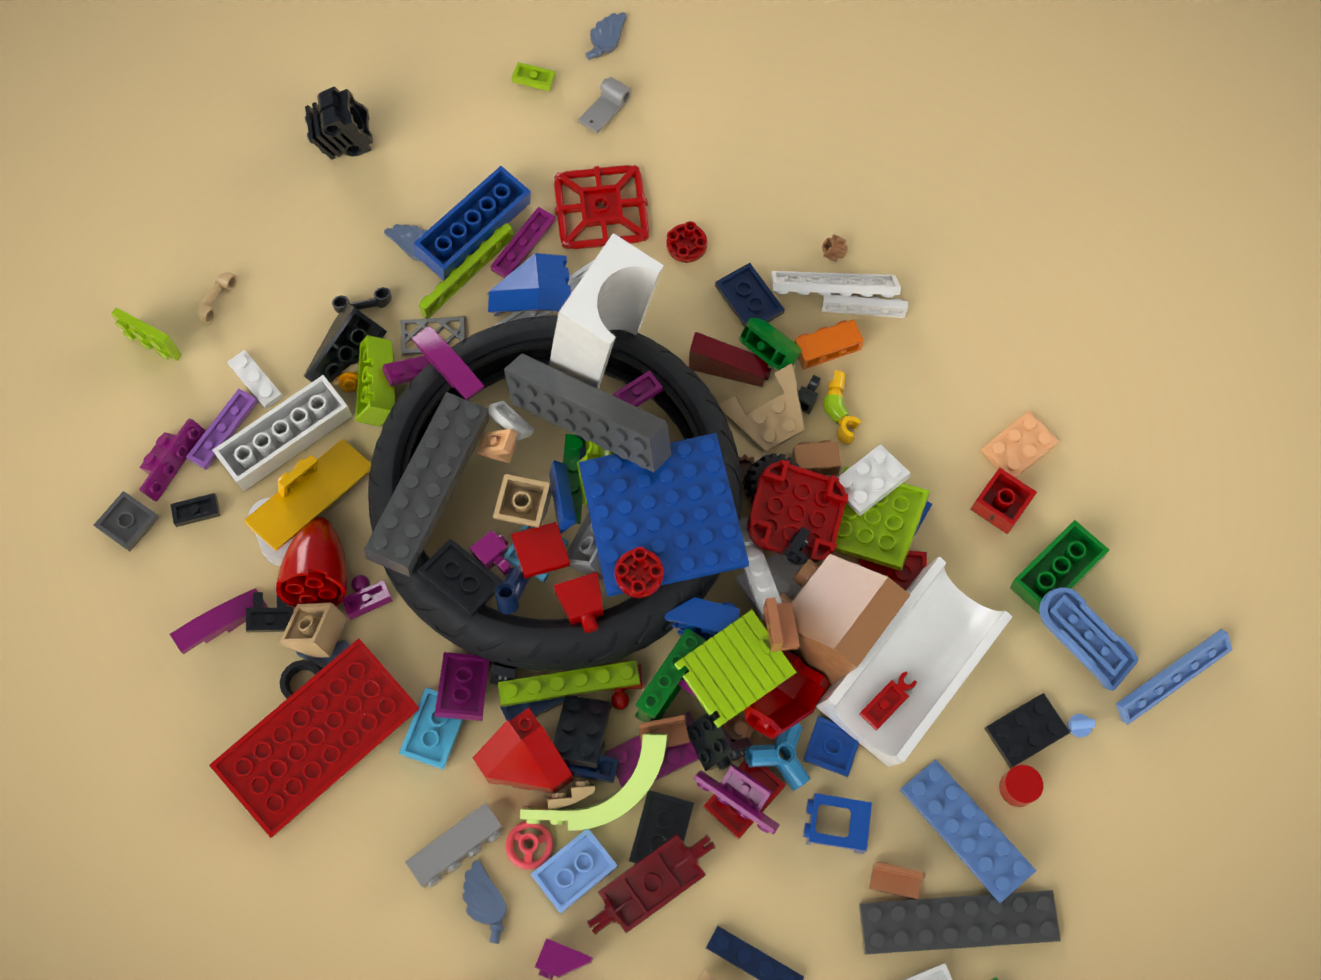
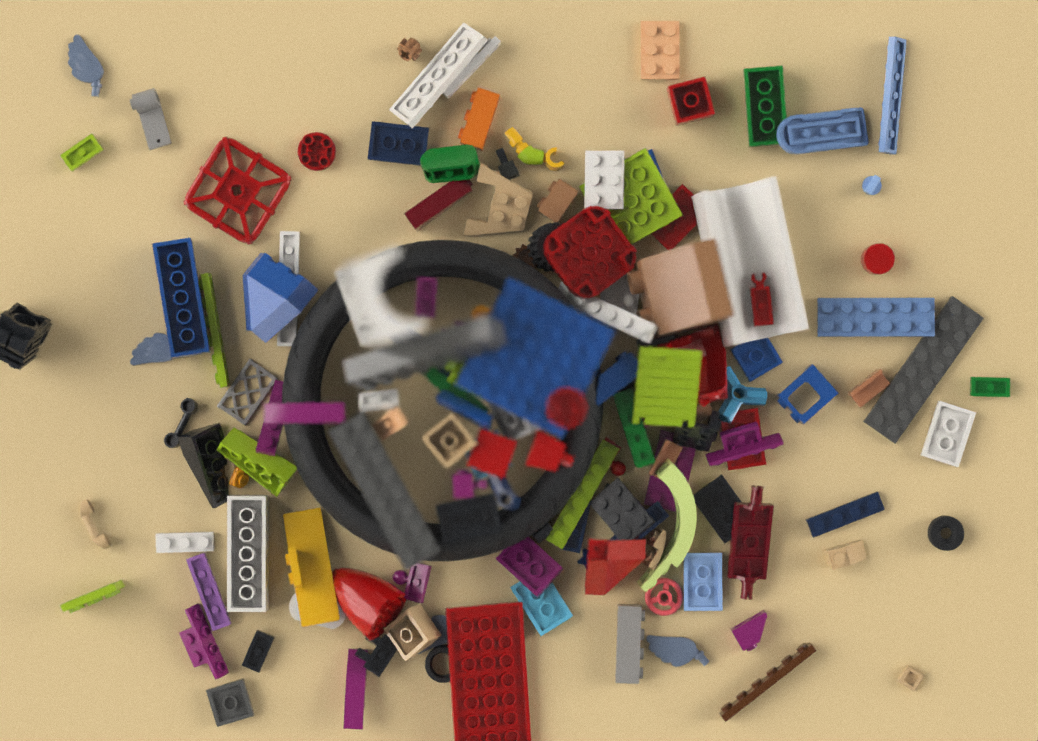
camera: 55 degrees left, 20 degrees up
(523, 242) = (223, 271): magenta plate -> none
(780, 625) = (666, 337): nougat panel -> none
(795, 545) = (613, 274): black bracket -> none
(1027, 730) = (847, 222): black plate -> none

